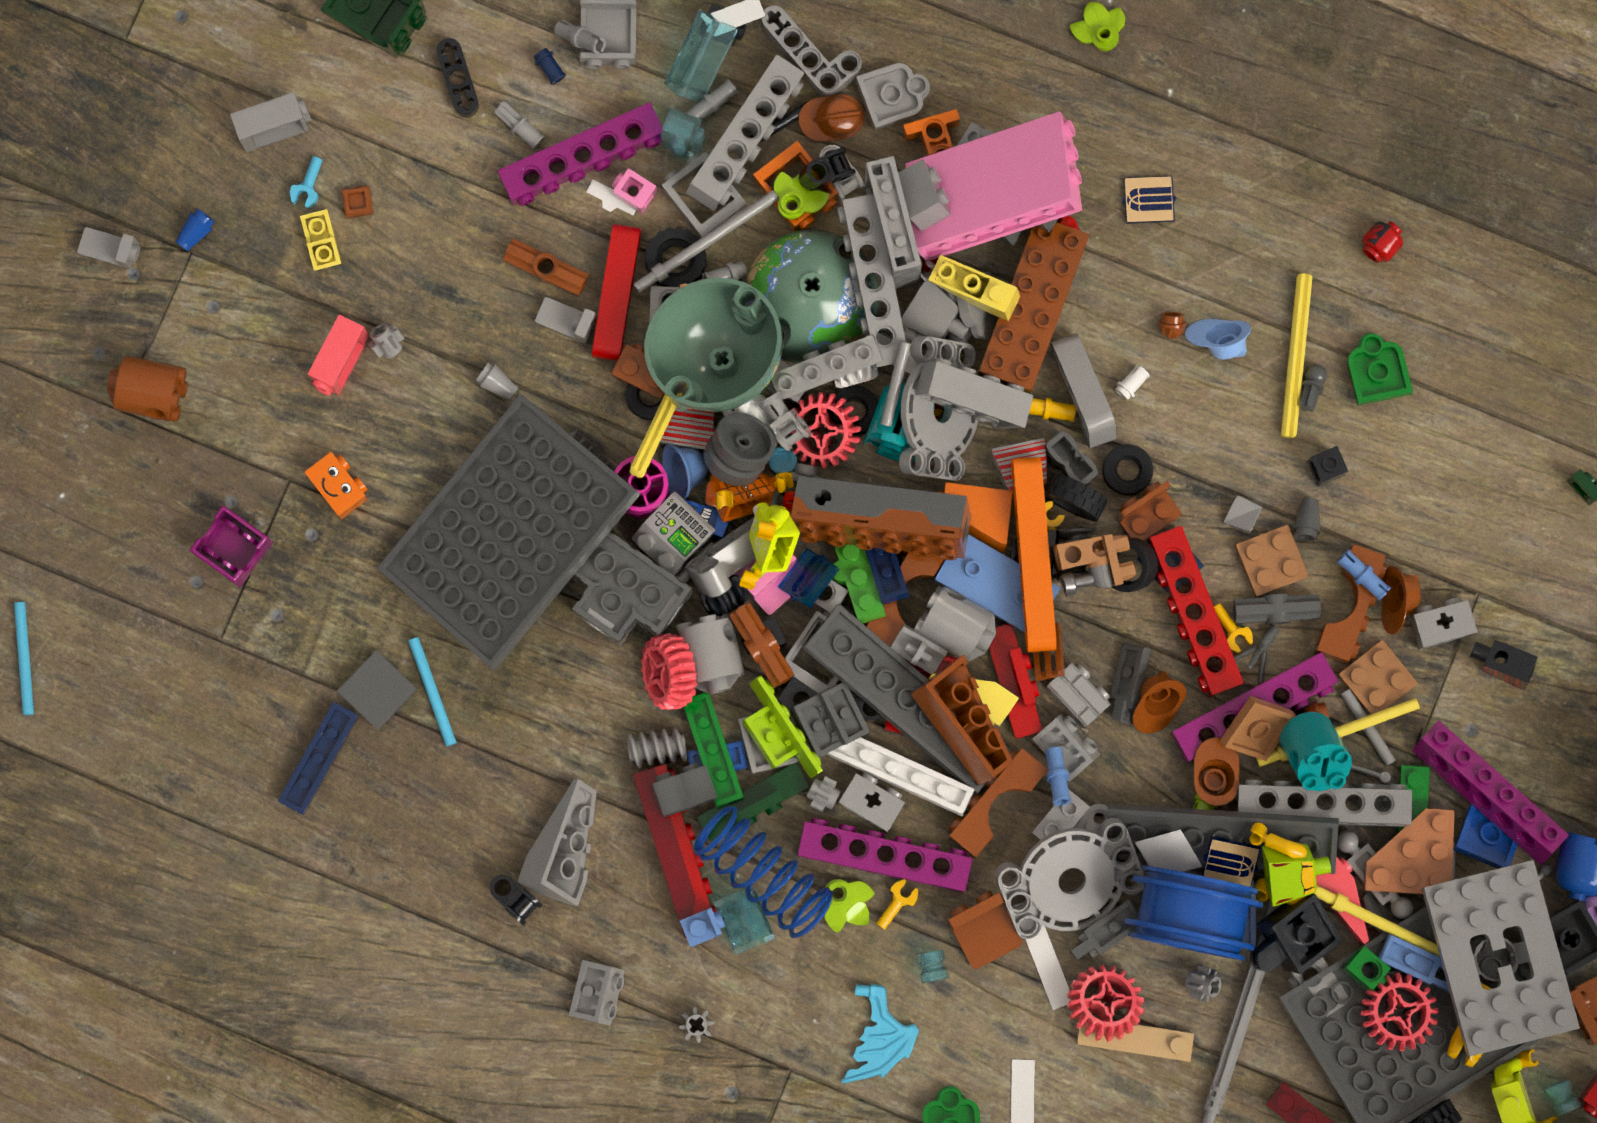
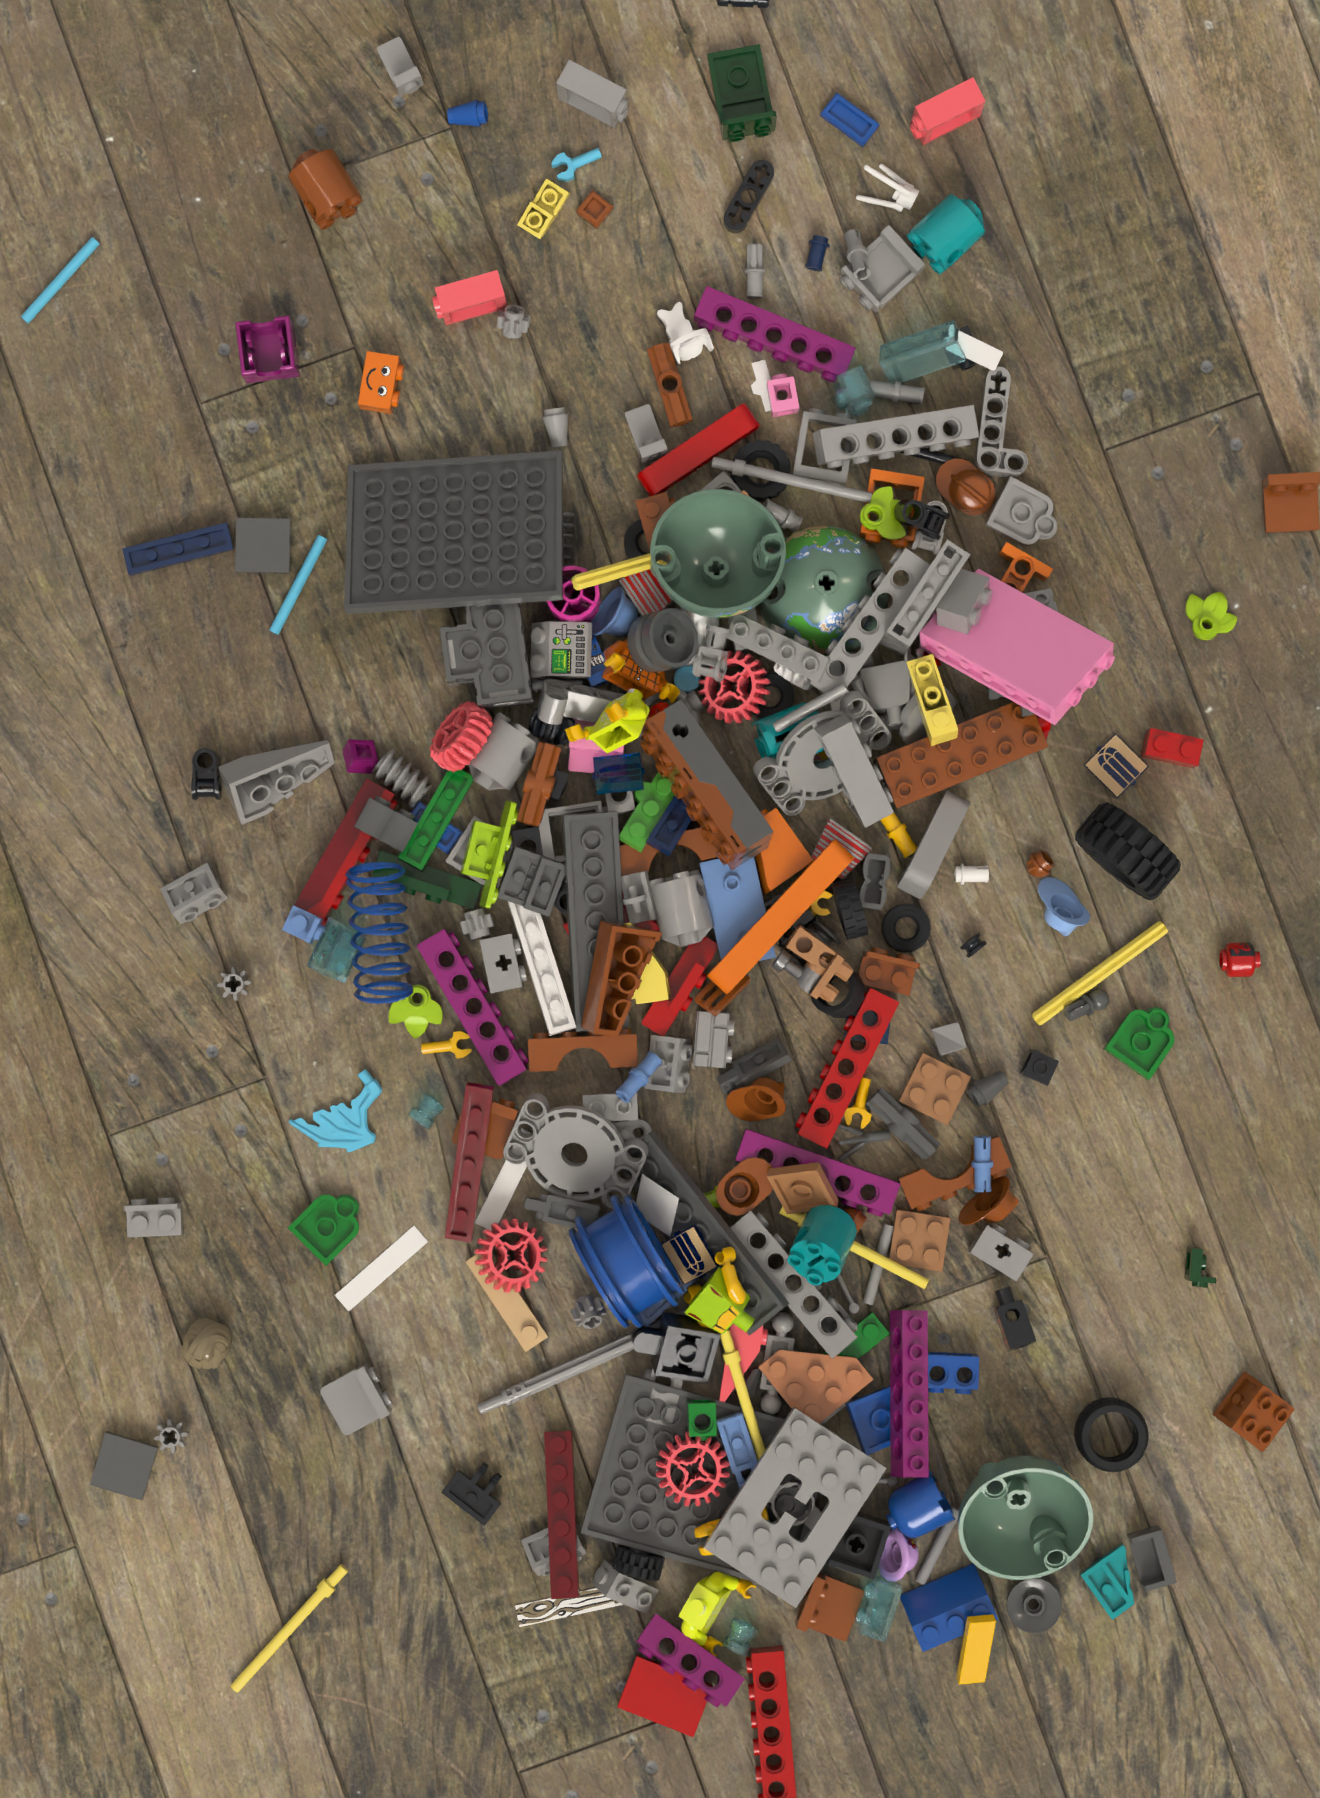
camera: 55 degrees right, 5 degrees up
(521, 226) = (684, 341): none -> white hair
(610, 765) = (360, 756): none -> magenta slope
(1004, 967) = (469, 1162): none -> dark red plate
(1174, 145) = (1172, 748): none -> red brick
(1188, 430) = (973, 945): none -> black bush
(1224, 247) = (1128, 851): none -> black tyre
(1496, 742) = (951, 1364): none -> blue brick

